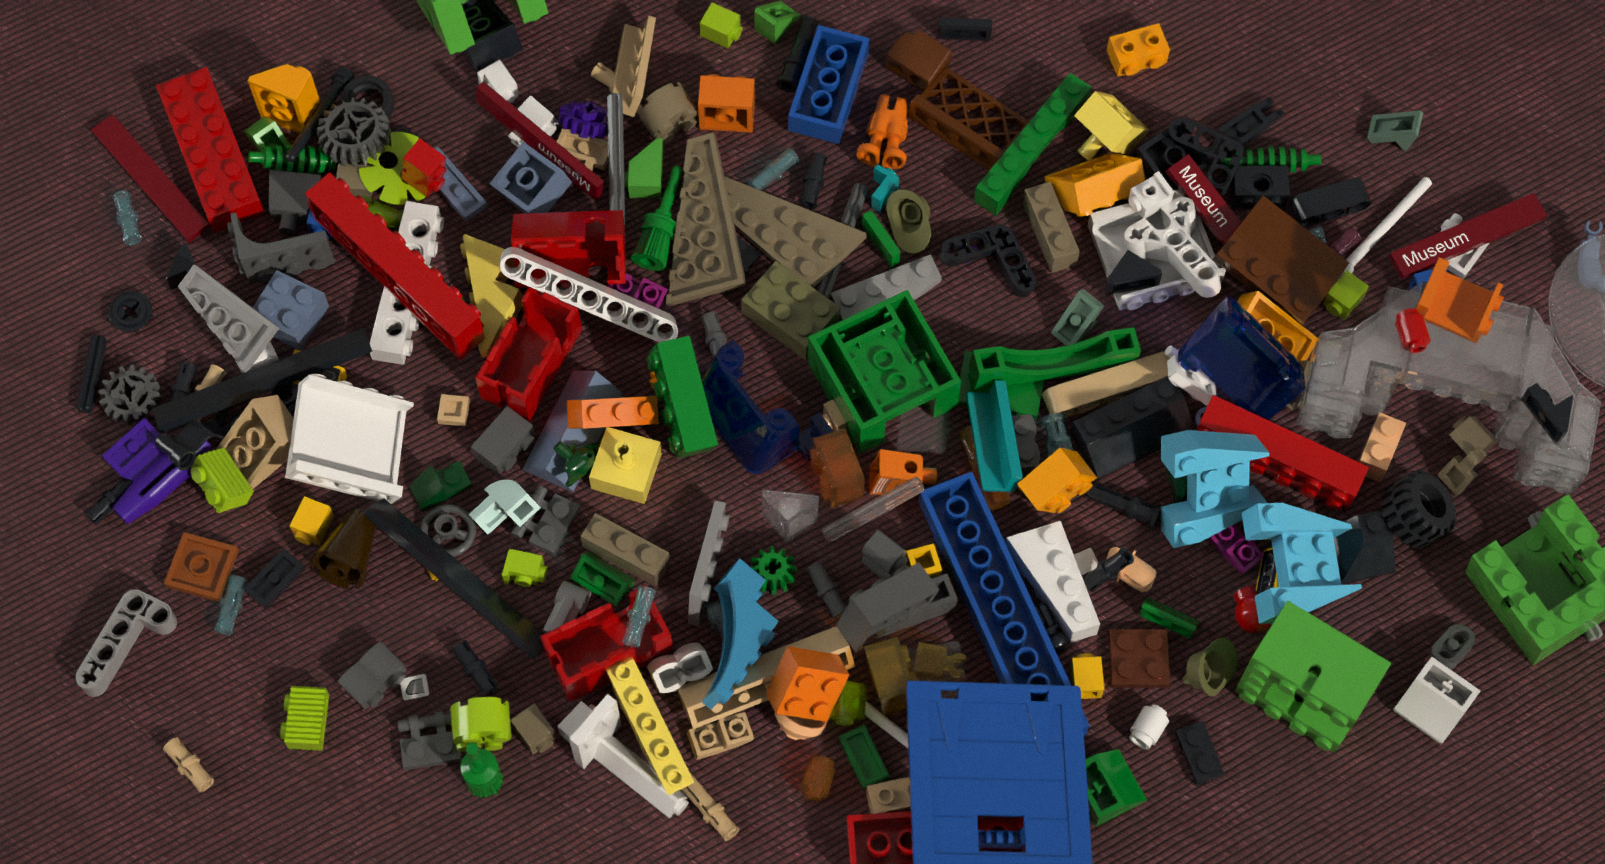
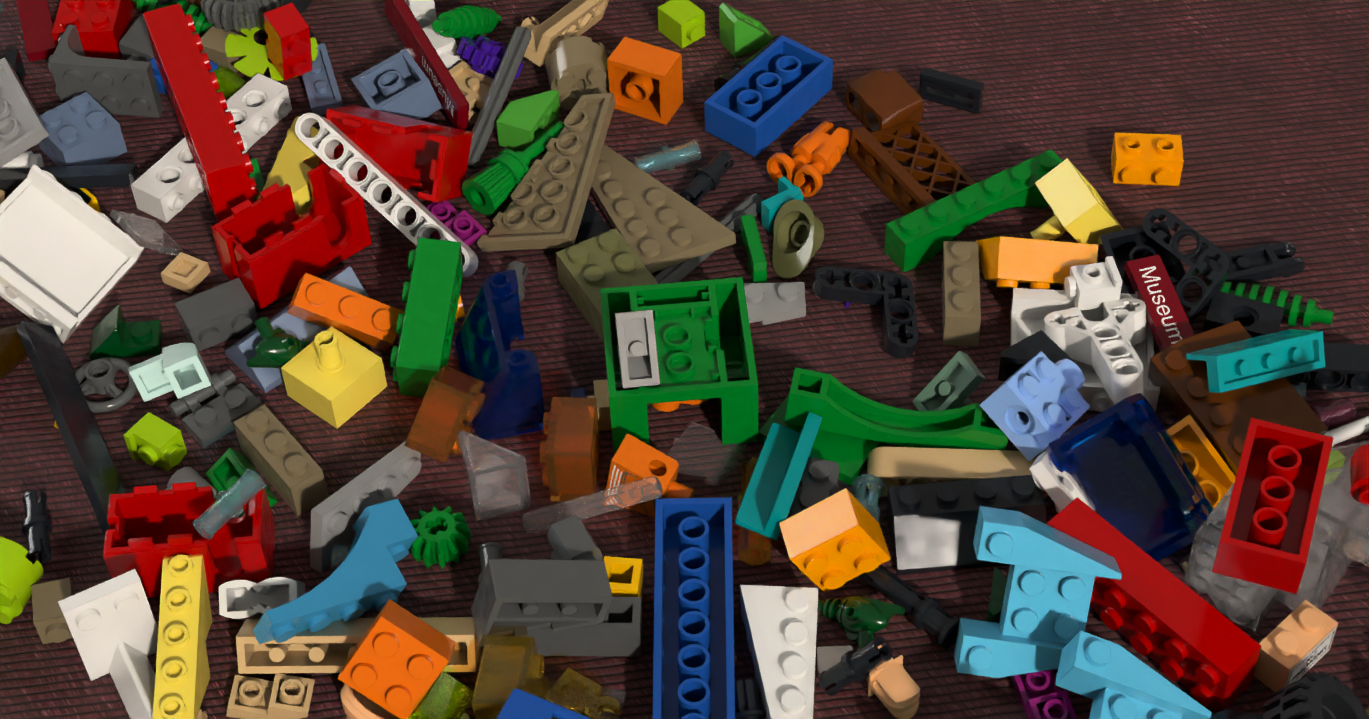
camera: 25 degrees right, 20 degrees down
(404, 386) = (146, 232): none -> clear piece
(553, 92) = (466, 21): none -> green piece
(737, 476) = (445, 411): none -> clear orange brick
(869, 388) = (637, 348): none -> light grey slope
(1092, 528) = (859, 616): none -> dark green piece
(1152, 319) = (1037, 403): none -> light blue brick
(1290, 226) = (1261, 359): none -> teal panel
(1360, 380) = (1273, 506): none -> red brick

